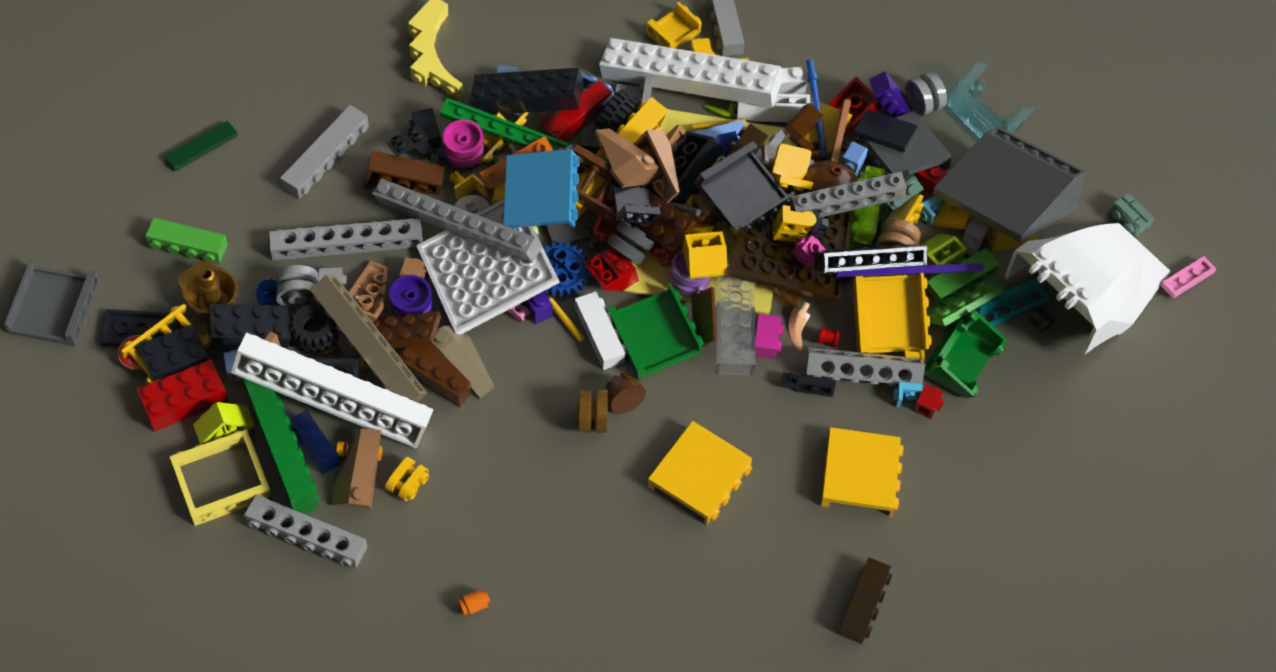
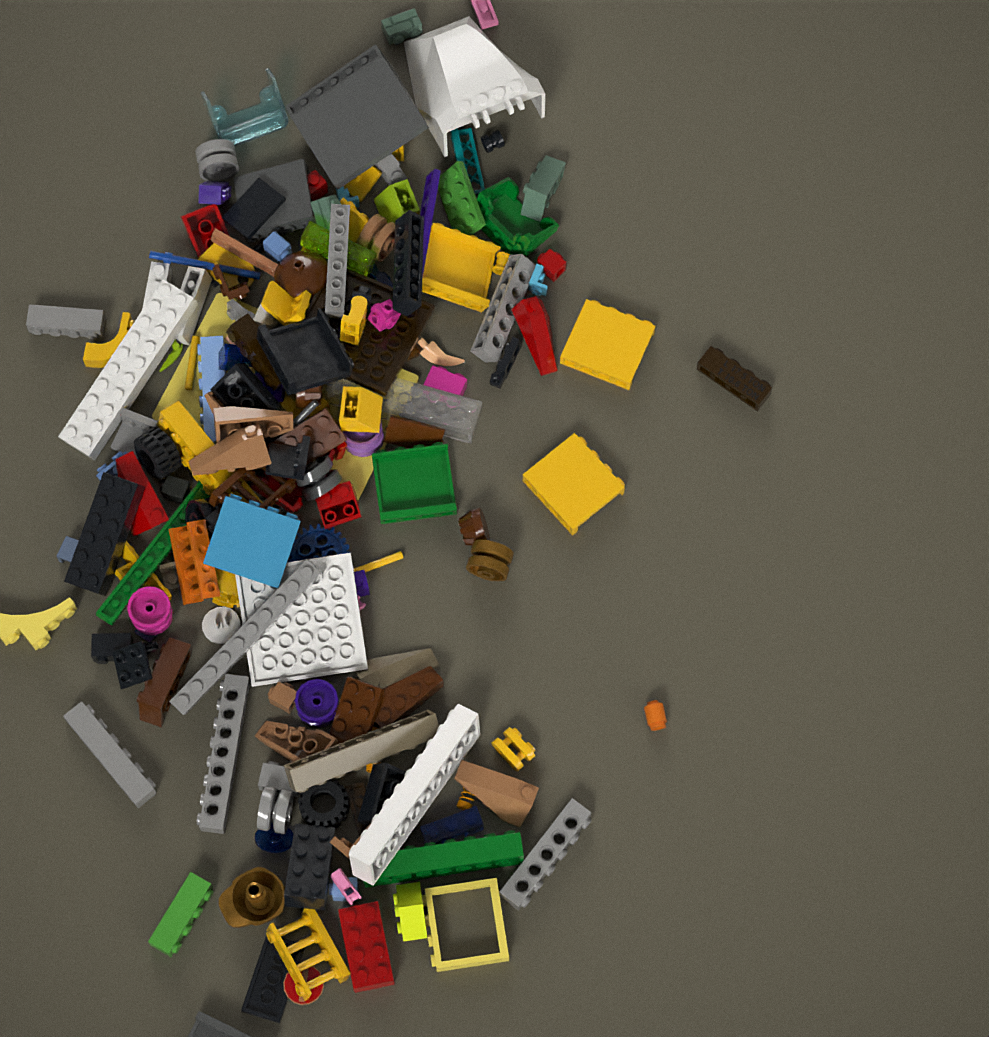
camera: 70 degrees left, 10 degrees up
(173, 352) = (320, 945): black plate -> none
(201, 145) = (61, 881): dark green tile -> none
(222, 365) = (344, 884): none -> bright pink bar
(465, 186) = (192, 624): yellow bracket -> none
(600, 330) = (398, 534): white brick -> none
(674, 28) = (56, 373): yellow panel -> none
(828, 336) = (460, 331): red bush -> none
(855, 401) = (537, 332): none -> red wedge
(949, 284) = (417, 175): bright green brick -> none
(1009, 371) = (541, 187): none -> sand green wedge

